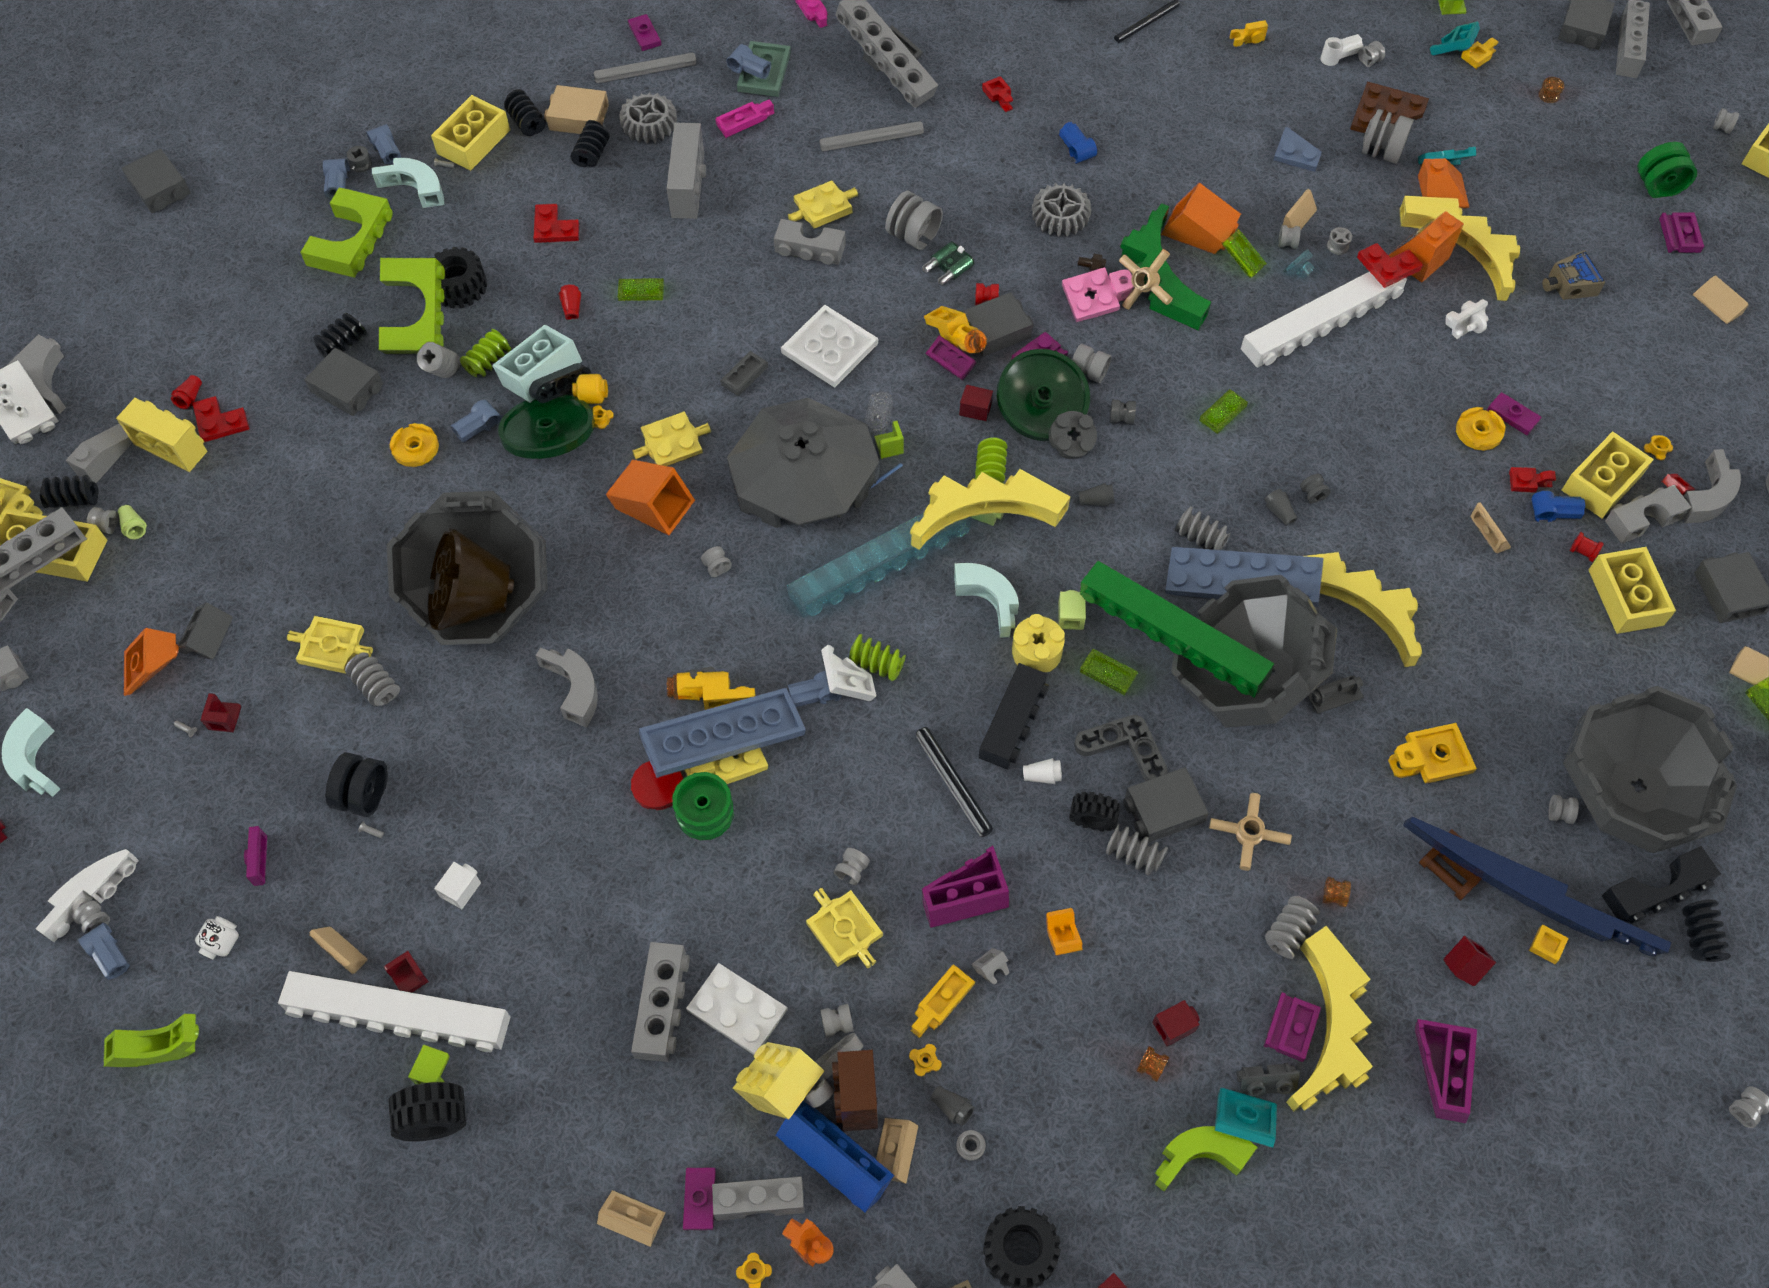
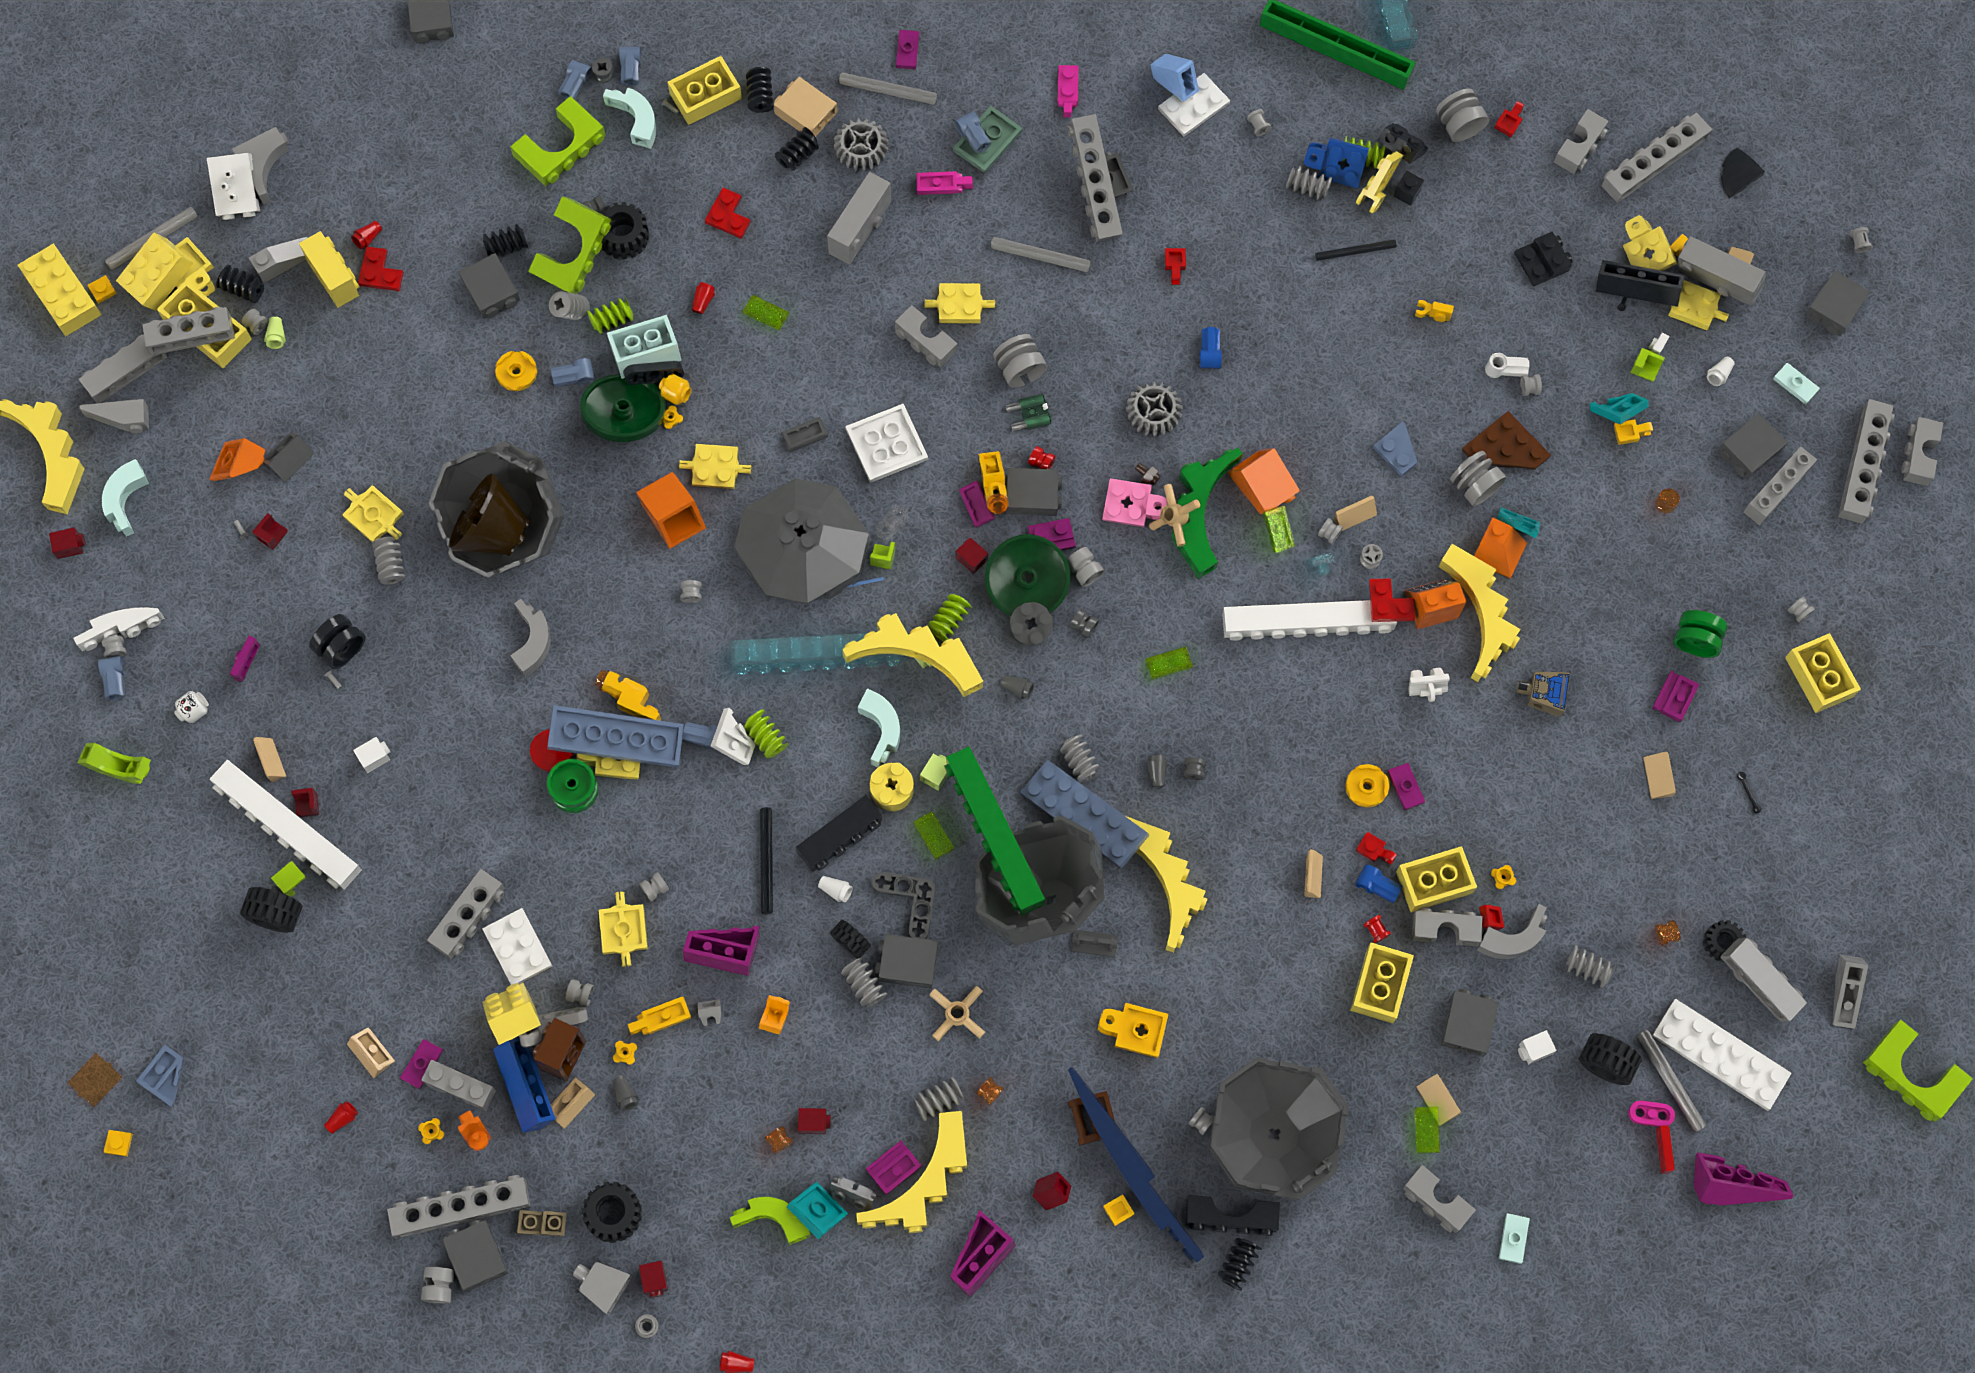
camera: 25 degrees right, 10 degrees up
(970, 1135) = (614, 1127): light grey plate -> none

